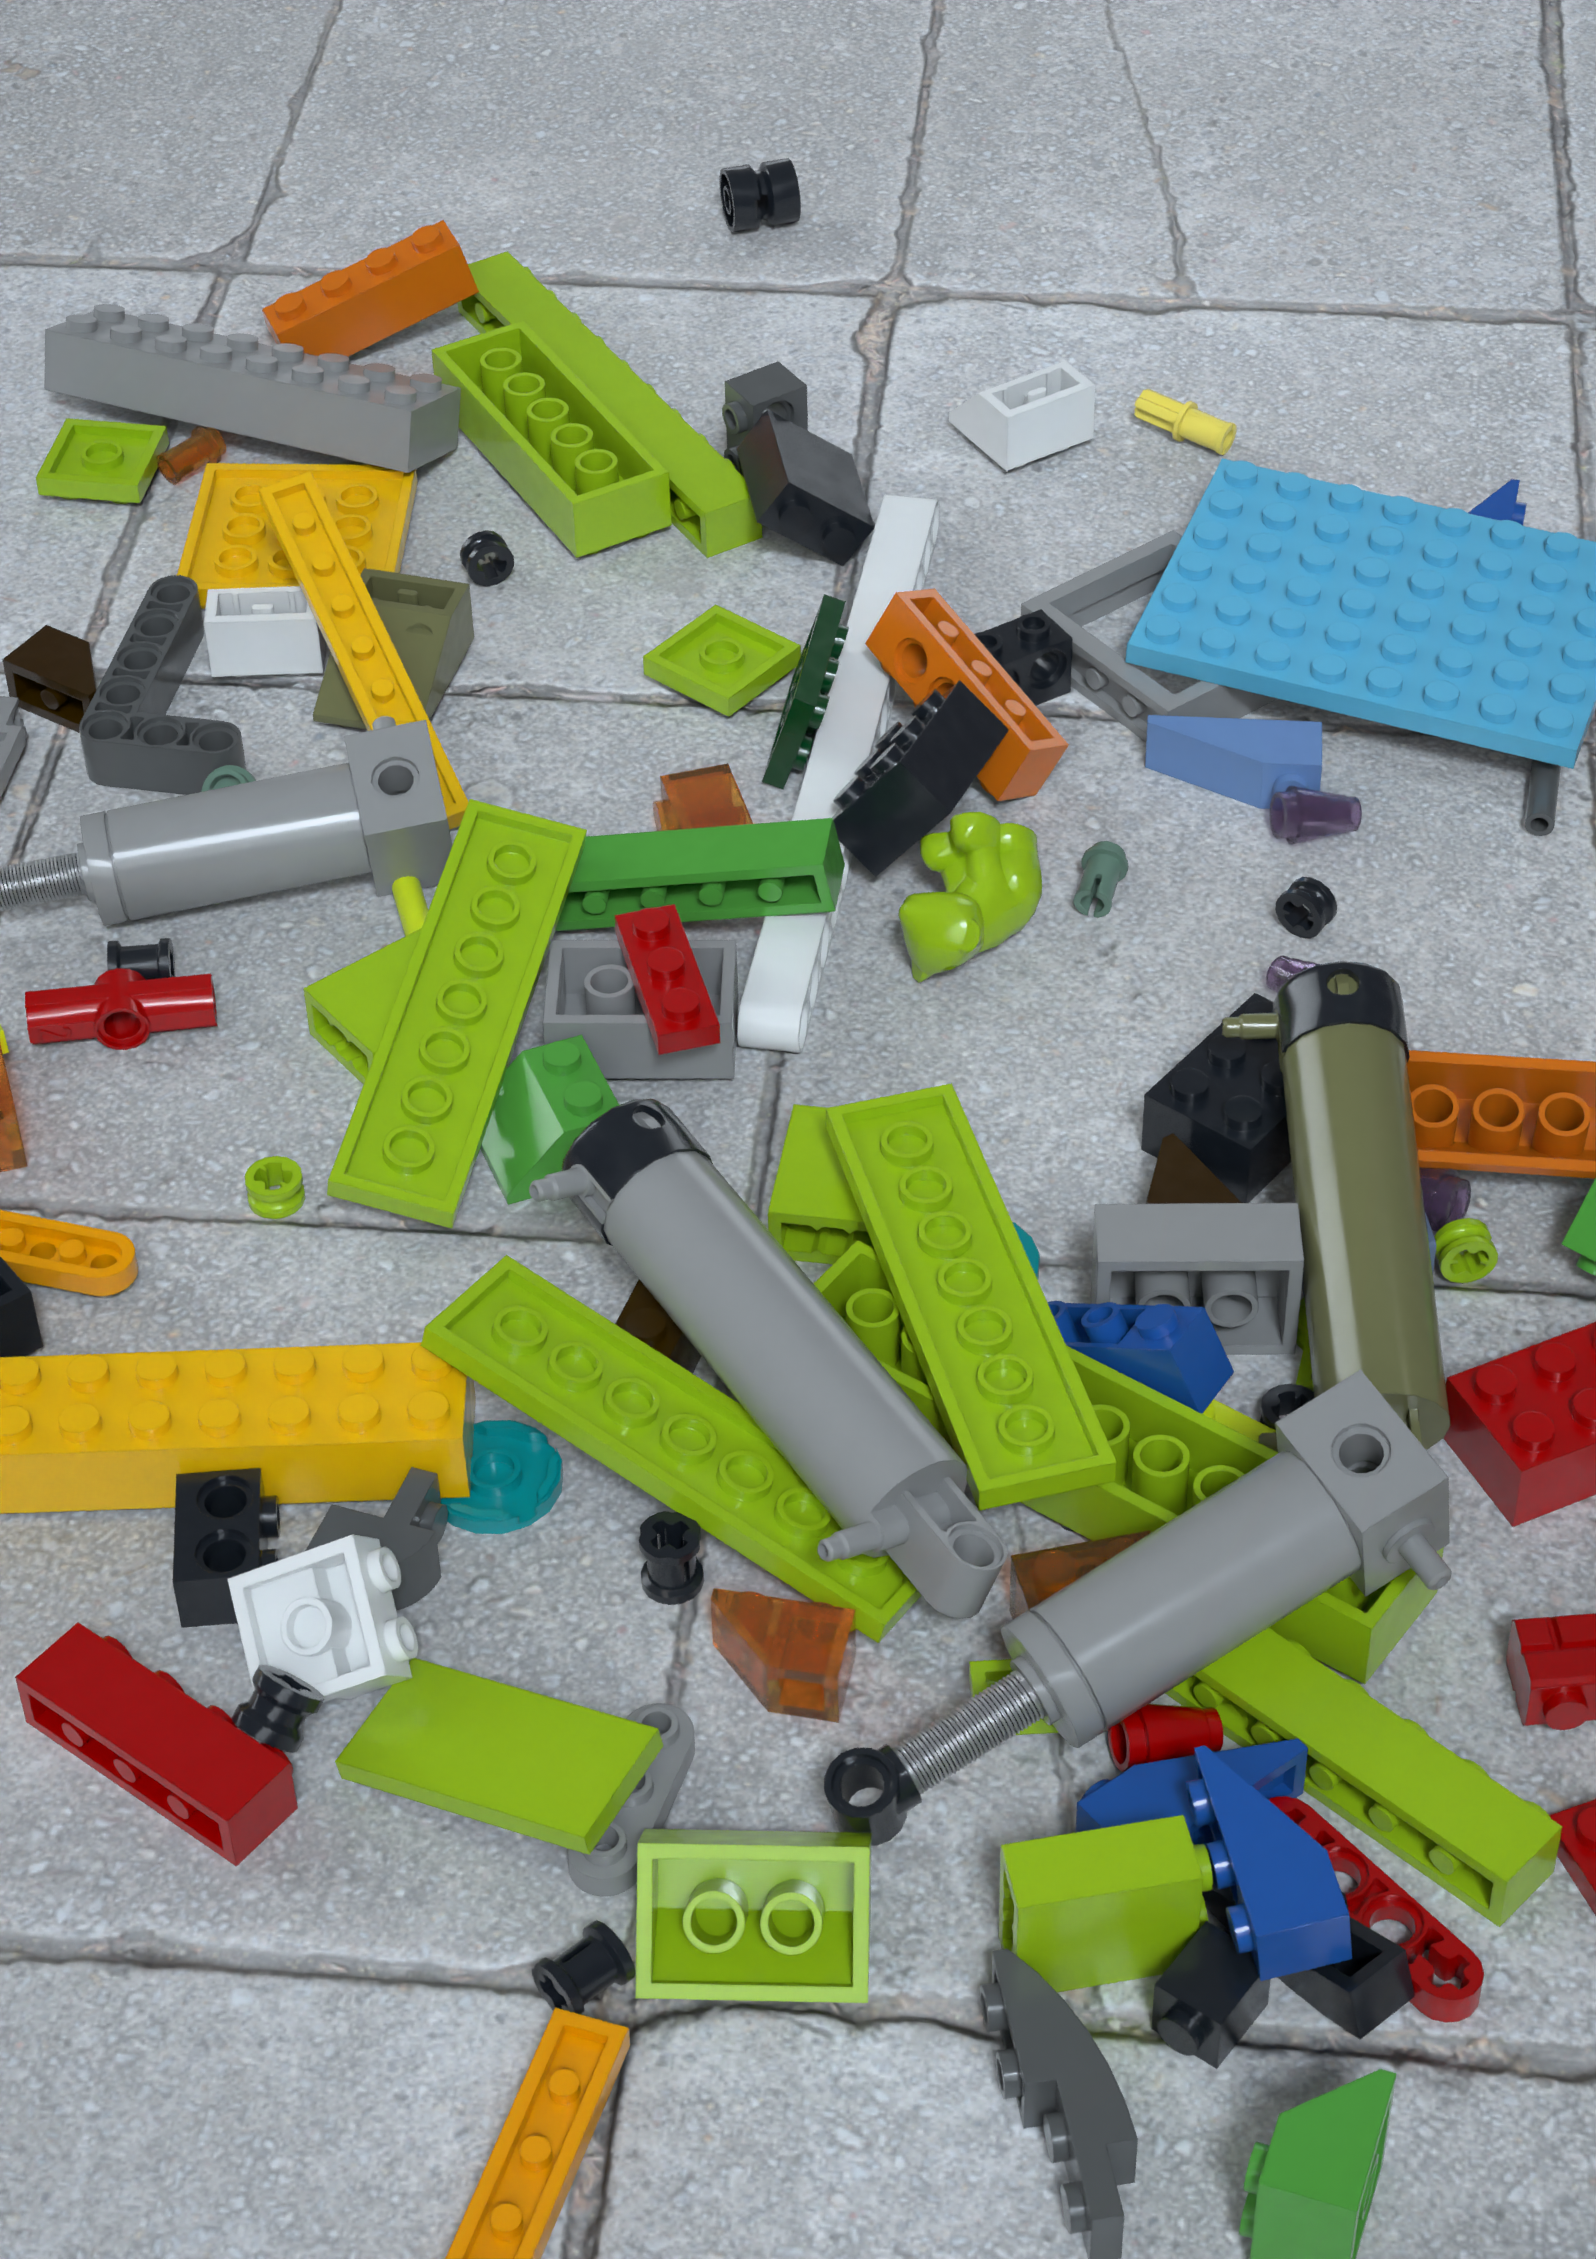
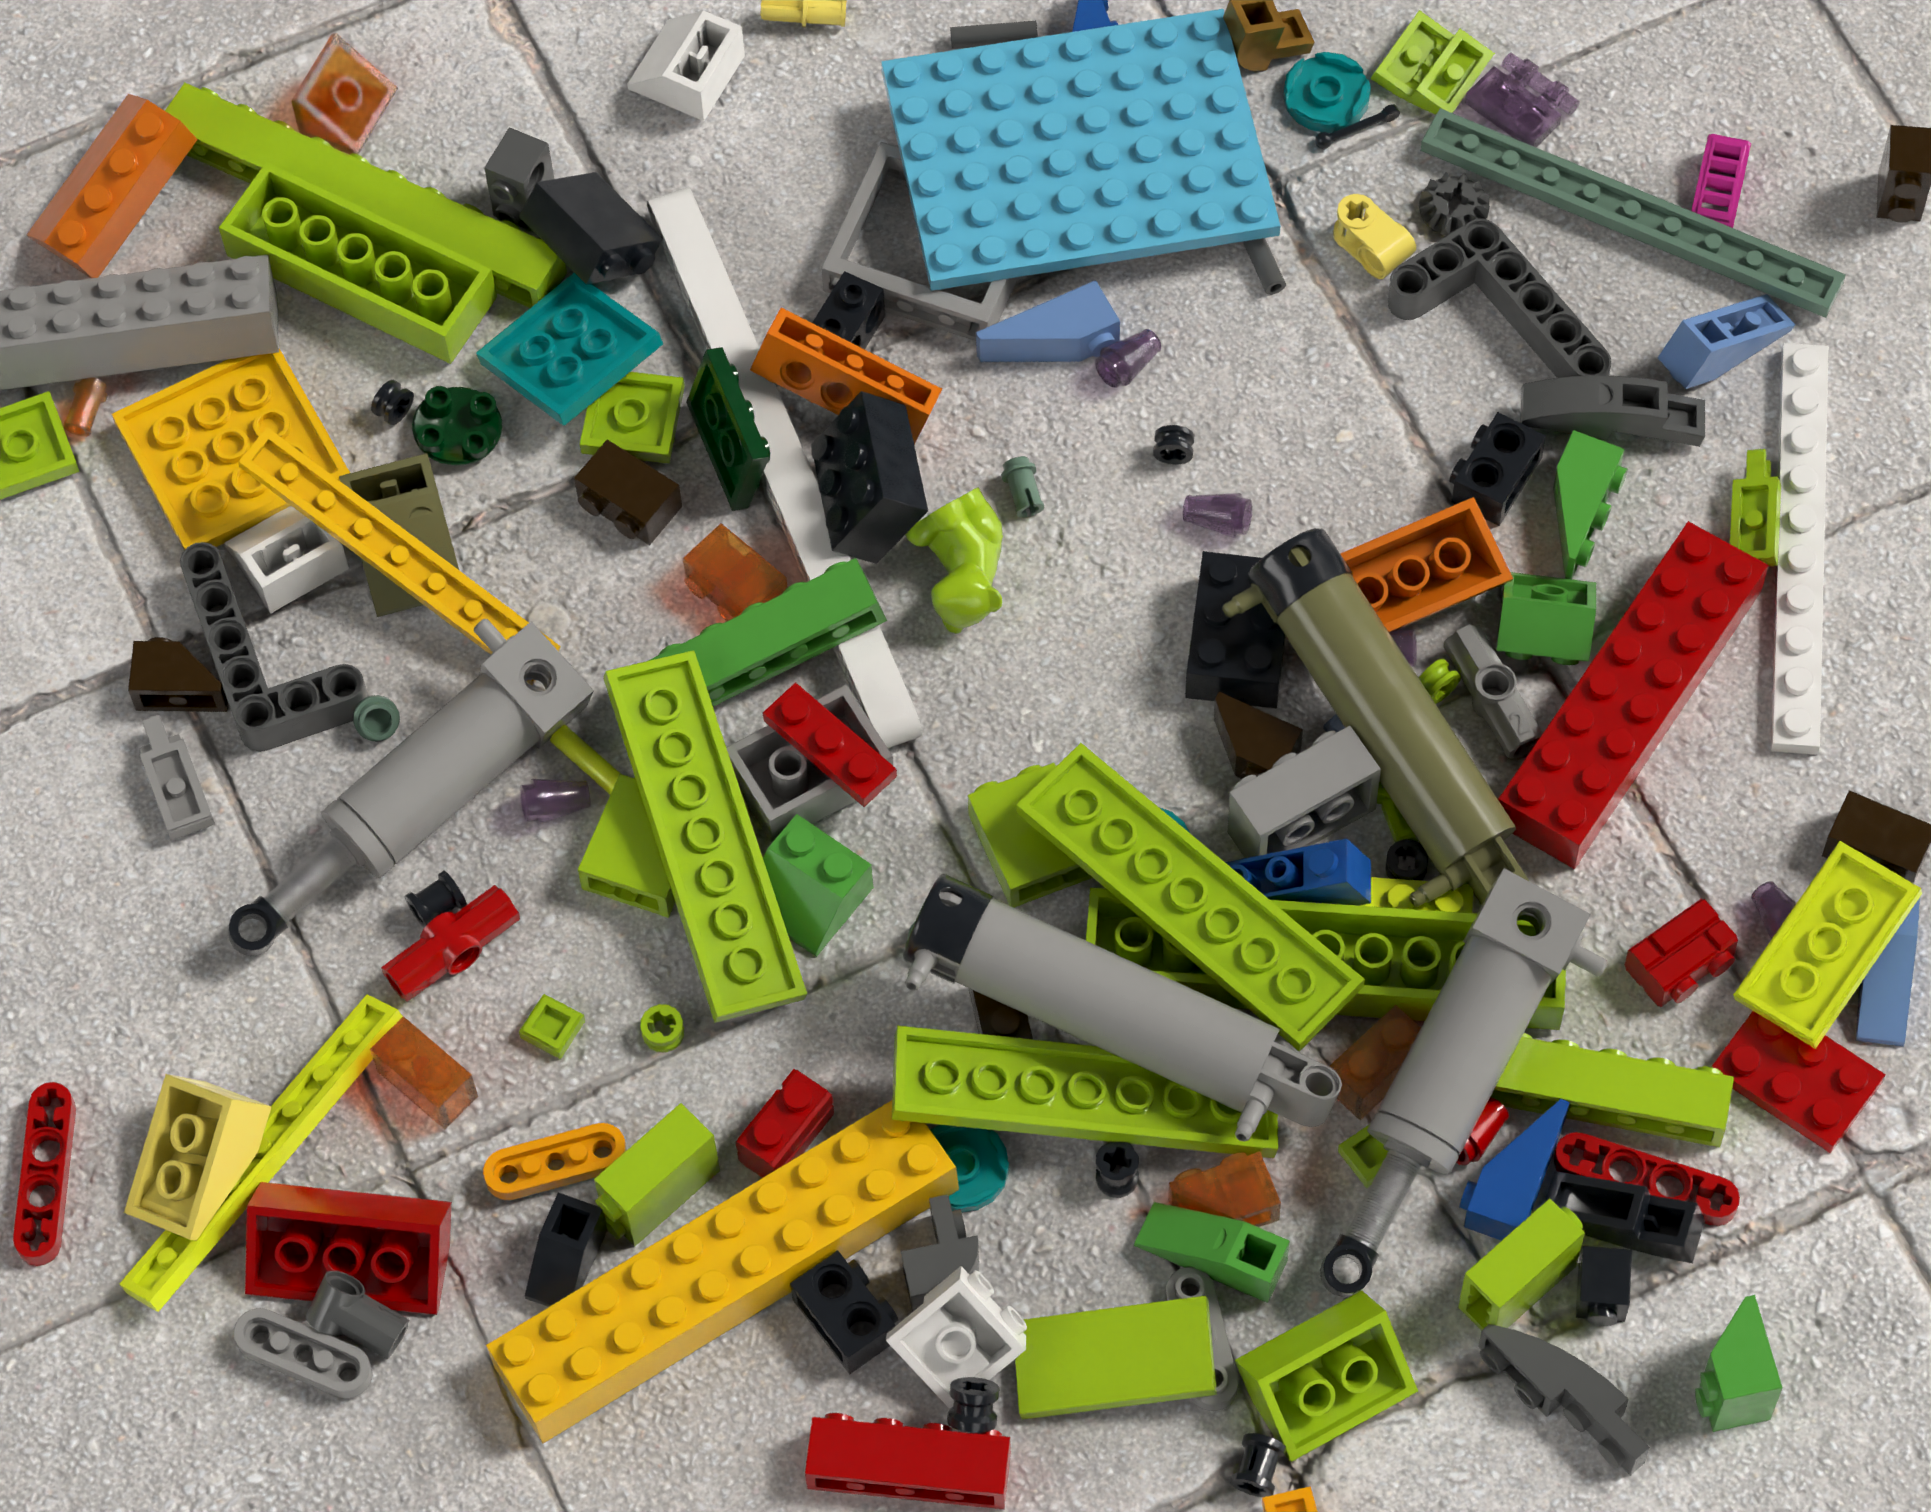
camera: 30 degrees left, 20 degrees up
(123, 1291) = (656, 1175): none -> lime brick
(161, 1135) = (552, 1026): none -> lime tile
(327, 1312) = (785, 1124): none -> red brick
(342, 932) = (552, 799): none -> clear purple cone
(536, 601) = (457, 425): none -> dark green dish
(651, 315) = (341, 97): none -> clear orange slope
(658, 715) = (627, 493): none -> dark brown brick
(701, 578) = (569, 349): none -> teal plate
(733, 1702) = (1218, 1246): none -> bright green slope
(1278, 1875) = (1613, 1203): blue slope -> none
(1529, 1275) = (1482, 670): none -> light grey piece

